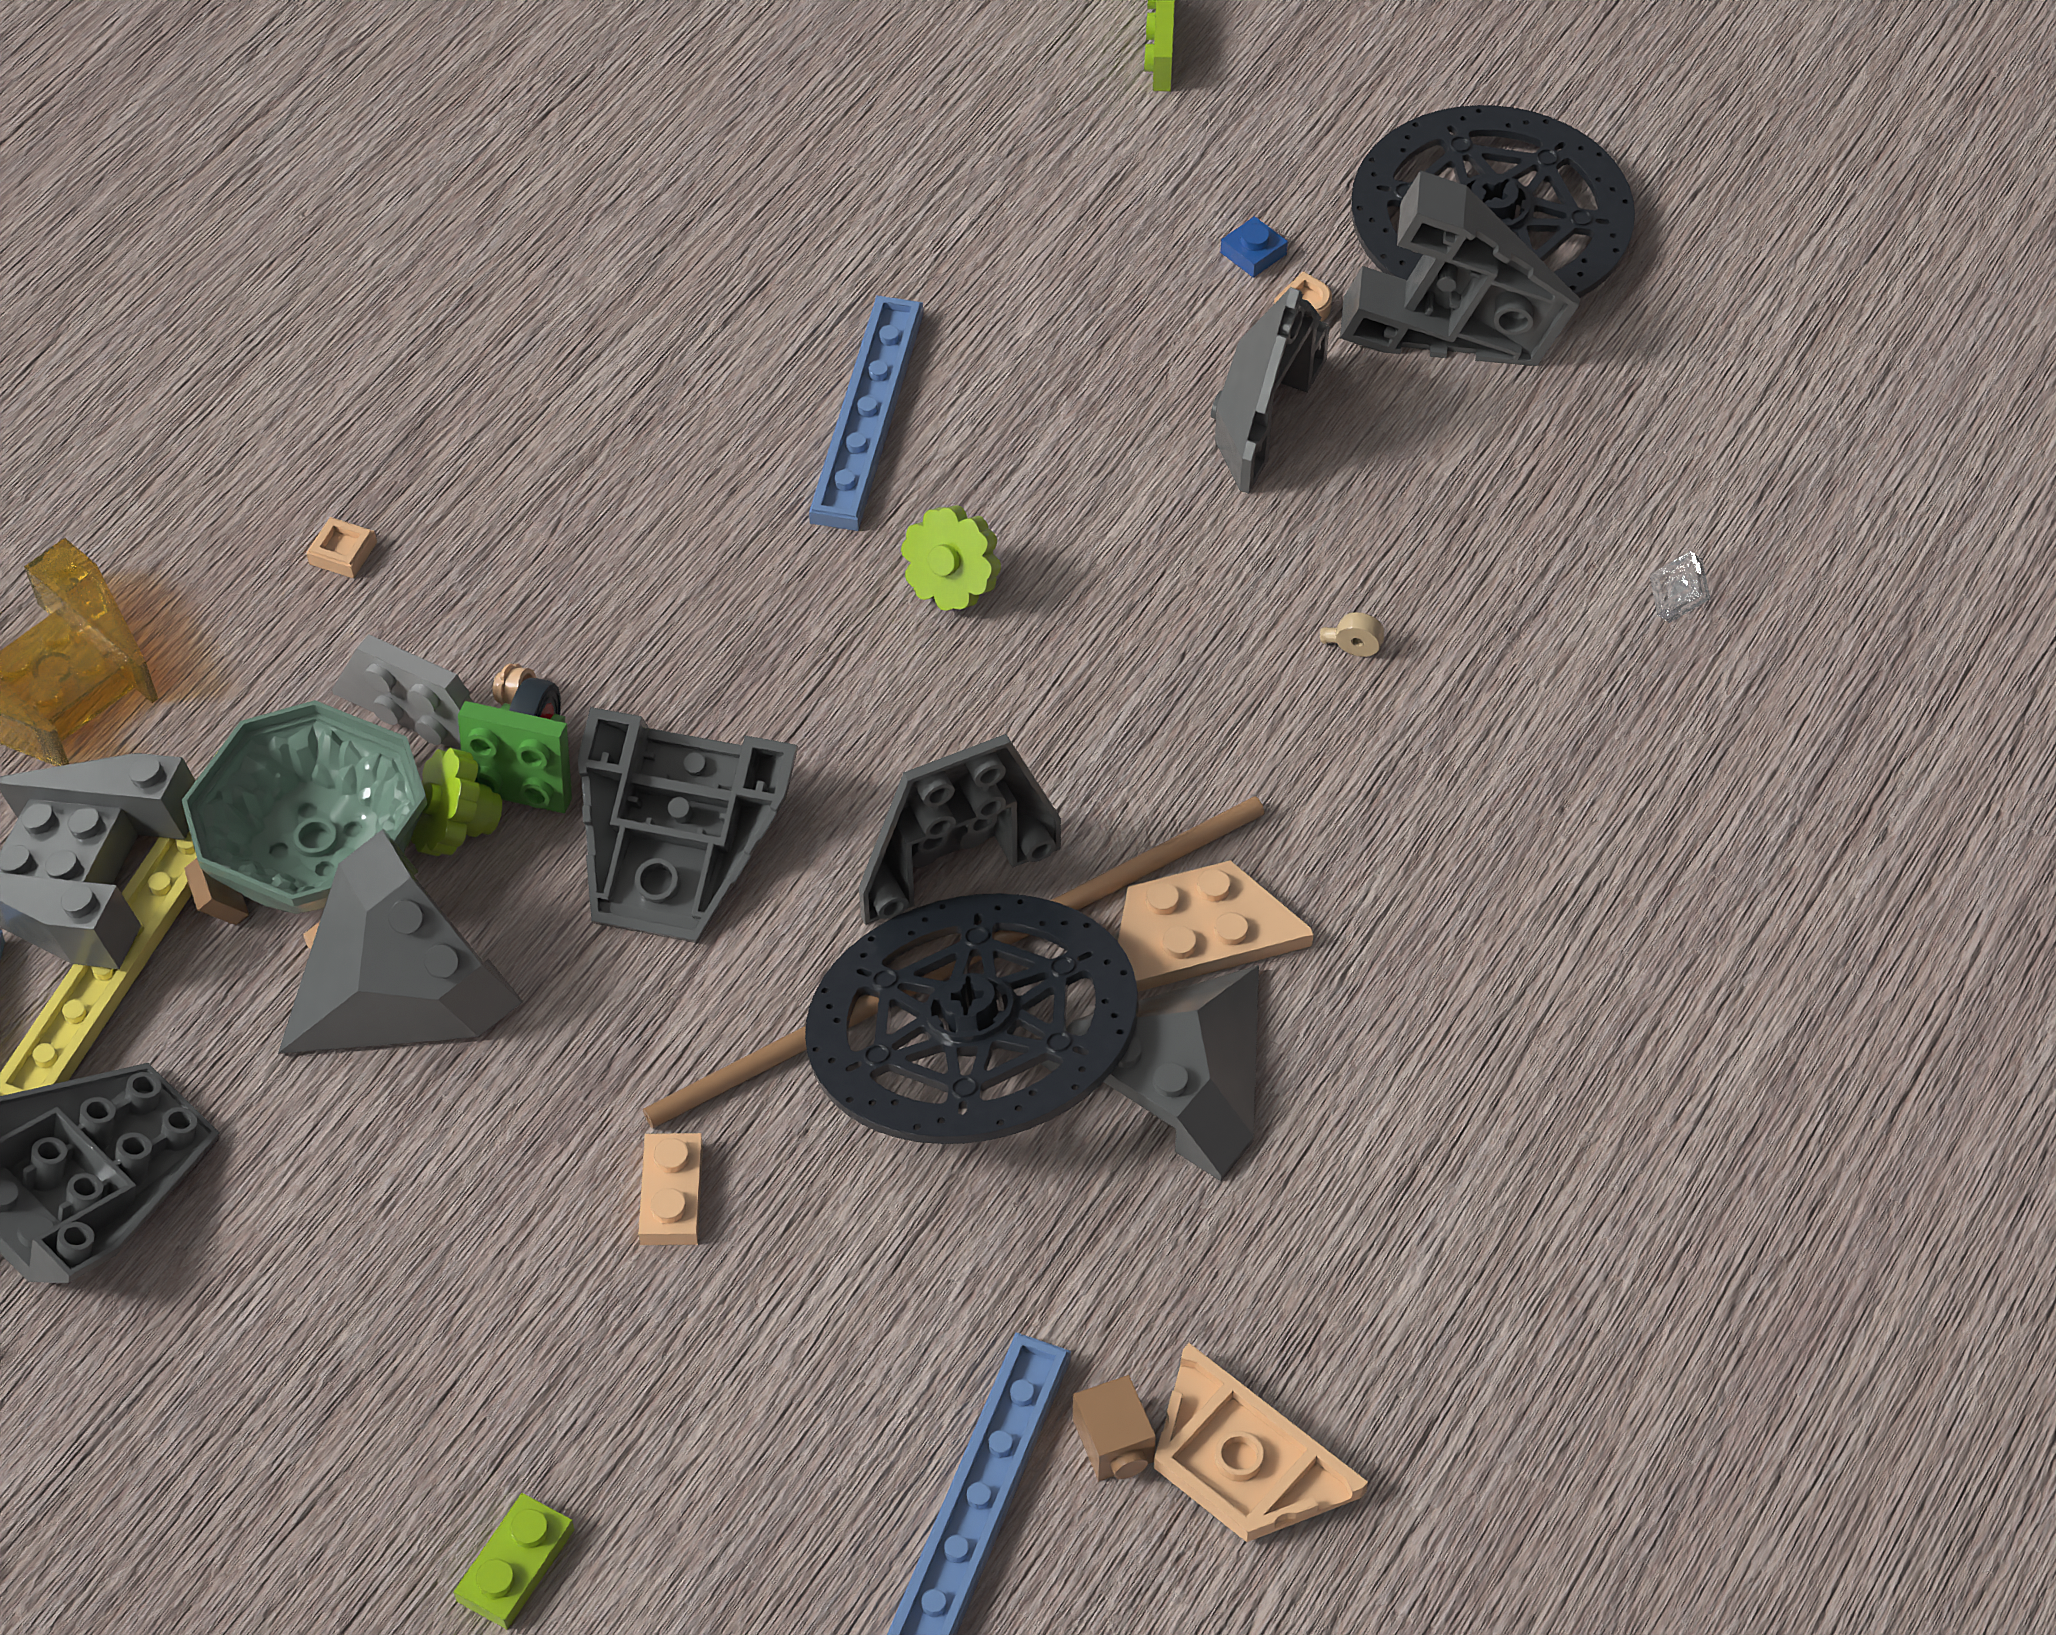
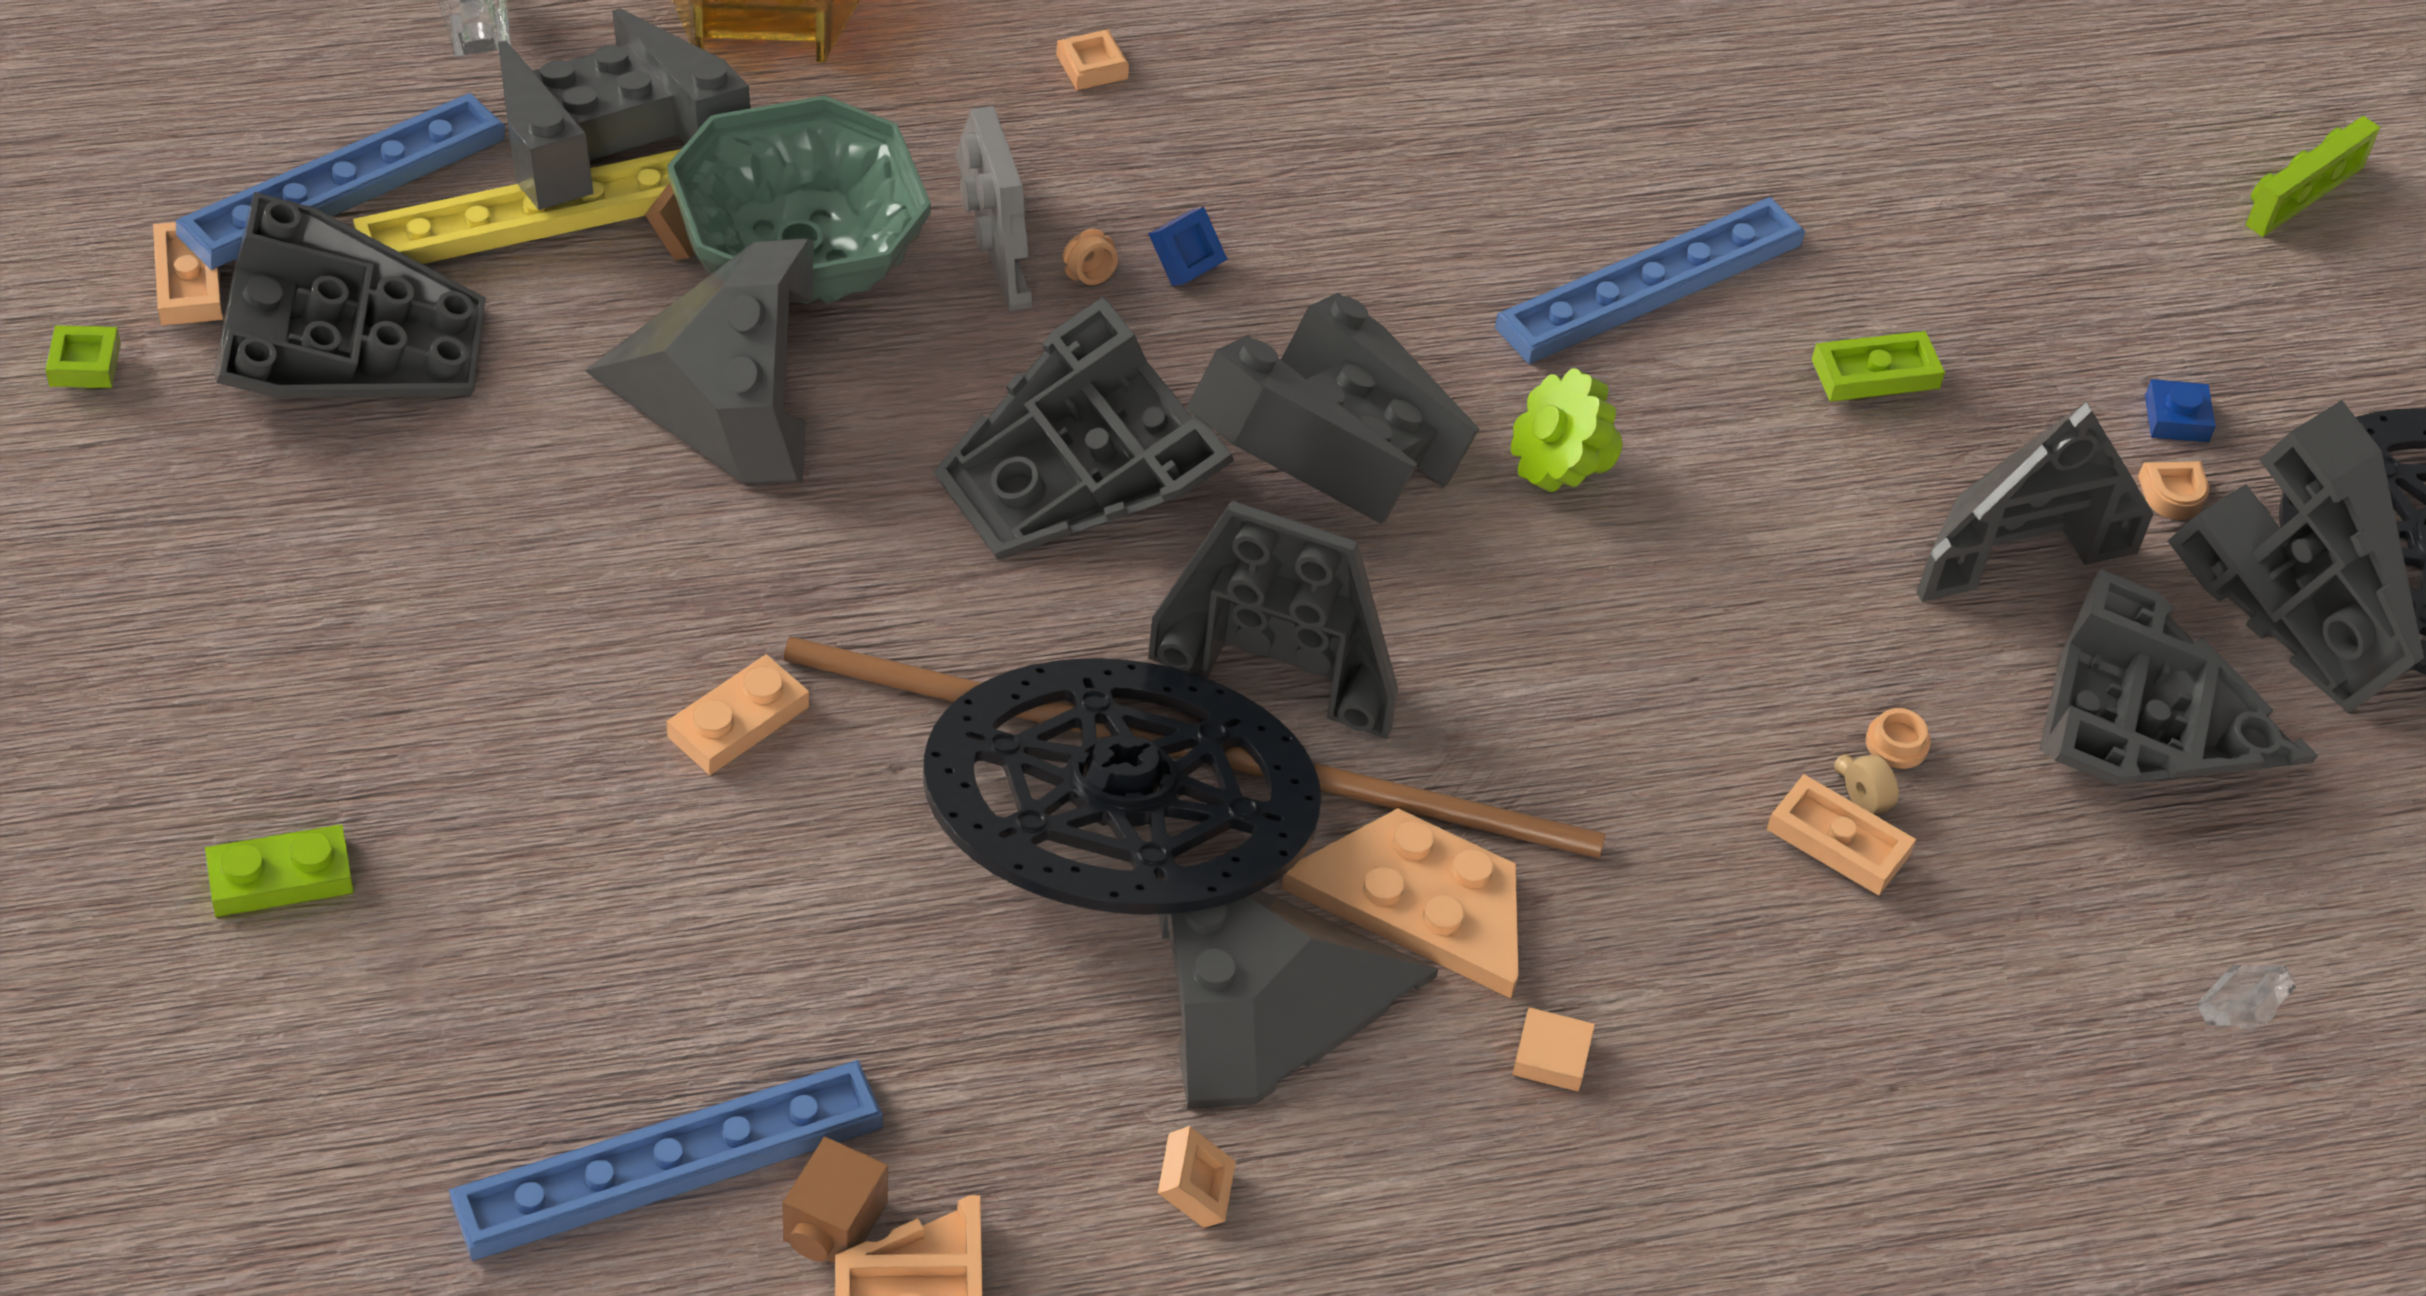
camera: 40 degrees right, 5 degrees down
(454, 804) = (926, 295): lime plant -> none
(521, 746) = (1028, 292): bright green plate -> none
(571, 628) = (1188, 246): none -> blue plate
(814, 657) = (1337, 408): none -> dark grey wedge
(1065, 359) = (1878, 366): none -> lime plate
(1286, 1215) = (1196, 1177): none -> light nougat plate
(1339, 592) = (1899, 738): none -> light nougat plate
(1374, 954) = (1553, 1049): none -> light nougat tile
(1377, 680) = (1841, 834): none -> light nougat plate
(1451, 452) = (2151, 702): none -> dark grey wedge

